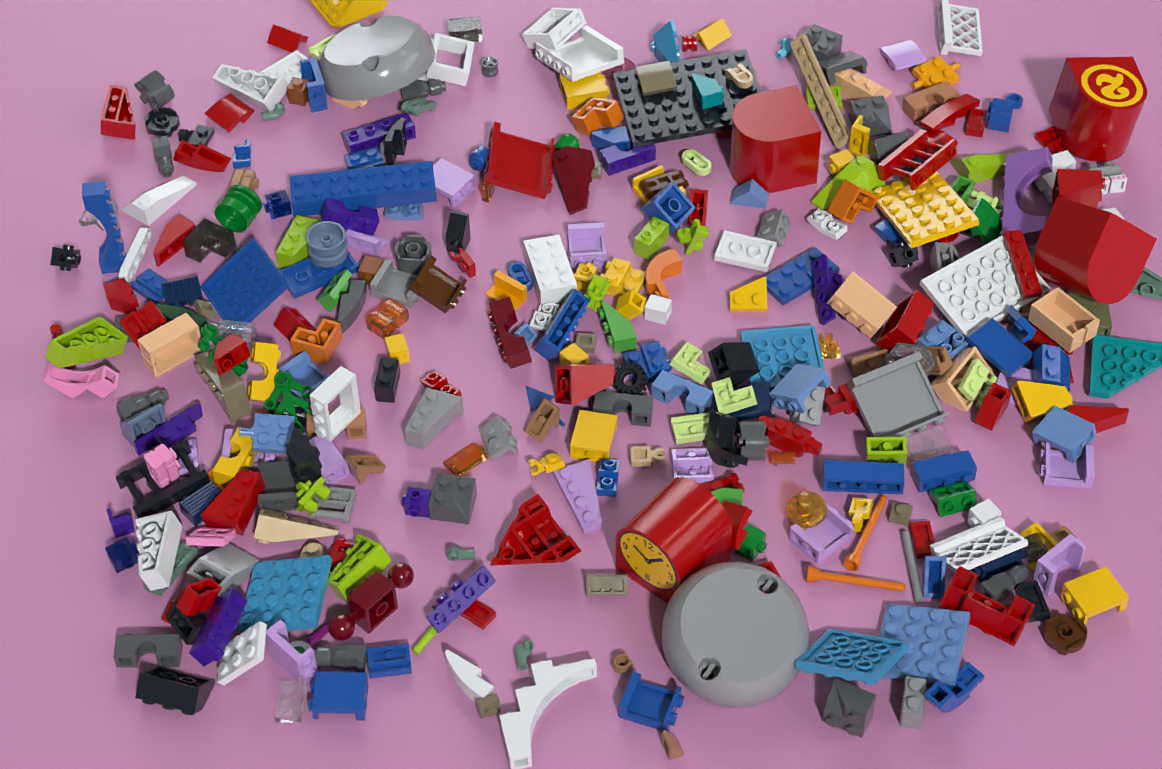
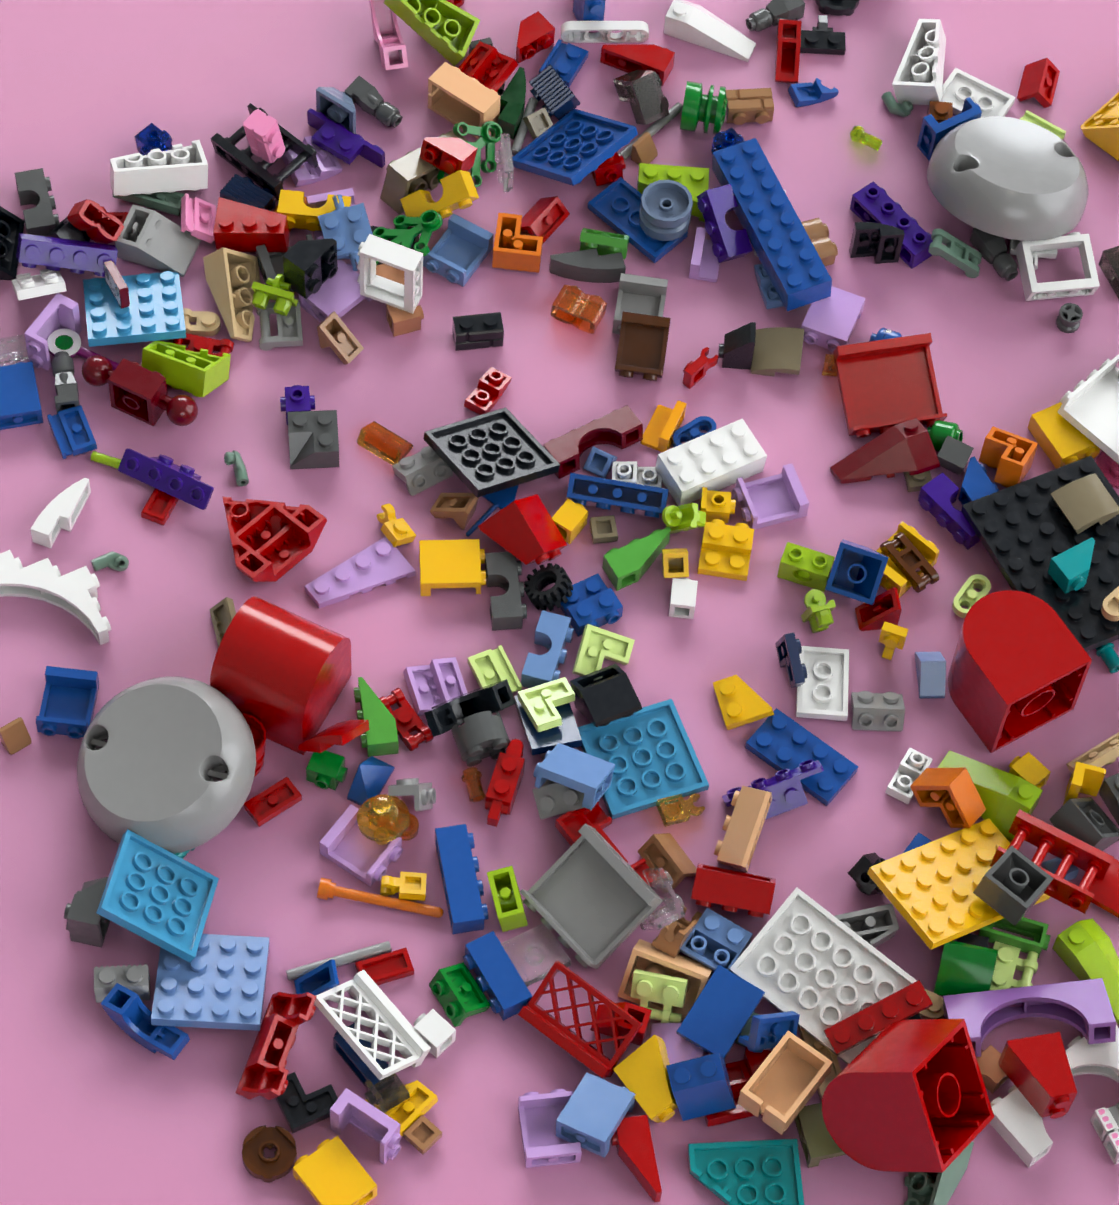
camera: 70 degrees right, 10 degrees up
(120, 524) = (202, 129): dark purple panel -> none
(229, 112) = (877, 58): red slope -> none
(264, 595) = (116, 284): none -> tile
(295, 135) = (860, 136): none -> clear neon green arm
(364, 158) = (841, 219): blue plate -> none
(369, 268) = (651, 267): dark orange brick -> none
(397, 348) = (530, 330): yellow brick -> none
(412, 253) = (688, 309): dark grey brick -> none
(431, 416) = (430, 388): light grey wedge -> none
(475, 210) = (777, 351): none -> dark tan slope
(488, 706) = (28, 541): dark tan plate -> none
(506, 387) = (491, 452): none -> black plate
(587, 140) = (954, 455): none -> dark grey panel
(608, 477) = (395, 598): blue slope -> none
(622, 659) = (118, 658): medium nougat plate -> none
(643, 456) = (436, 629): tan plate -> none
(660, 268) = (745, 584): orange arch -> none
(725, 203) = (892, 637): none -> yellow plate
(727, 253) = (788, 653): none -> dark blue plate
(766, 522) = (369, 780): none -> blue slope
(788, 487) = (423, 792): none -> light grey bracket
(815, 574) = (295, 847): orange piece -> none
(900, 513) = (420, 936): dark tan plate -> none
(943, 172) = (1013, 885): none -> dark grey slope
(1001, 584) = (327, 1067): dark grey piece -> none
(1005, 436) = (572, 1041): none -> red fence

